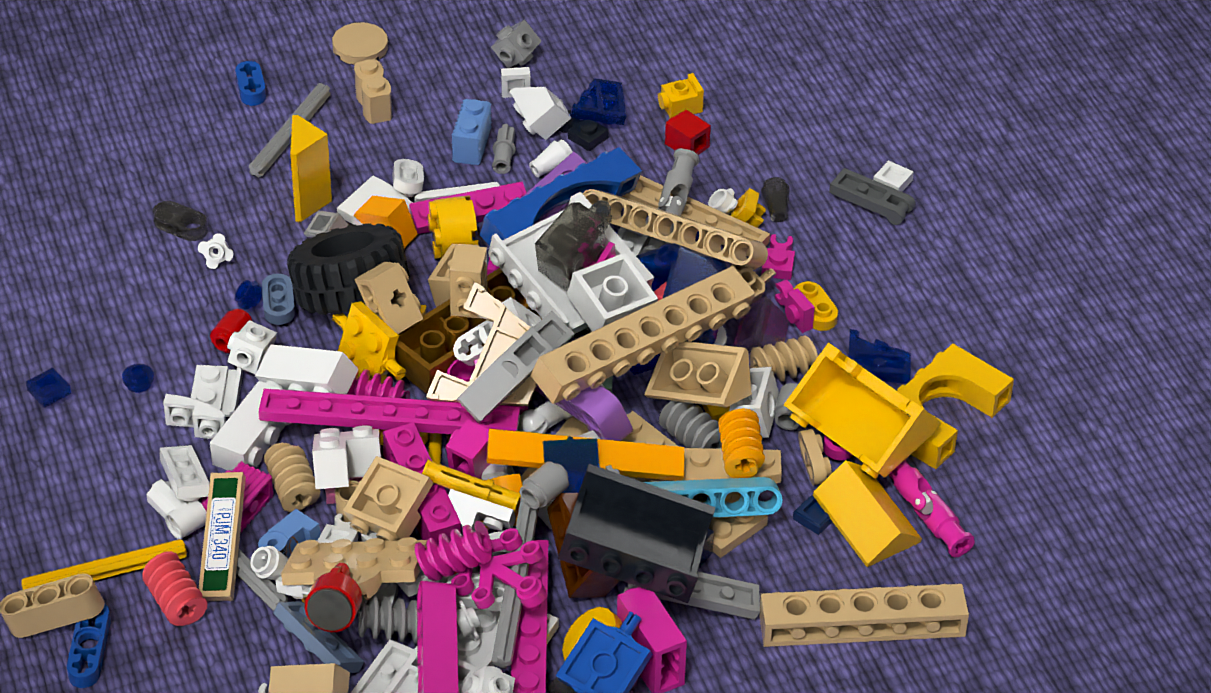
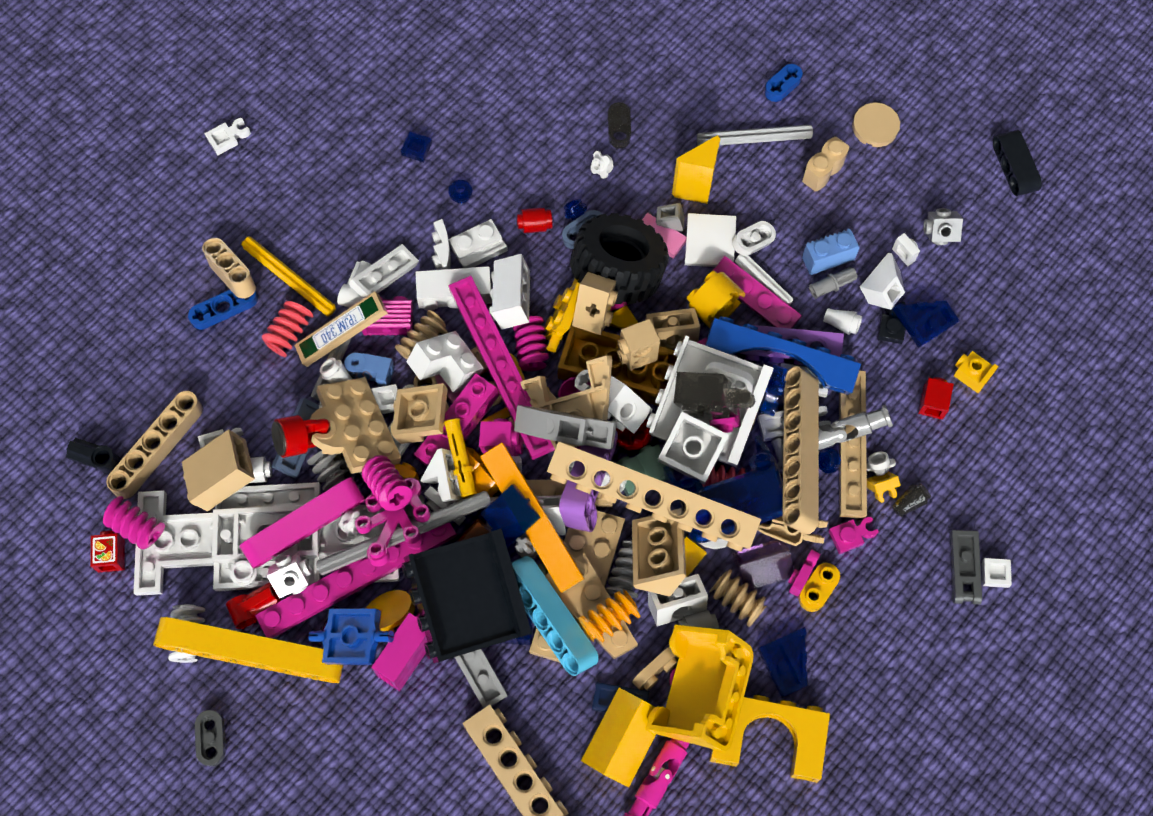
camera: 60 degrees right, 25 degrees up
(250, 346) = (521, 241): white brick -> none
(391, 213) = (698, 252): light orange slope -> none
(544, 485) = (475, 508): light grey brick -> none

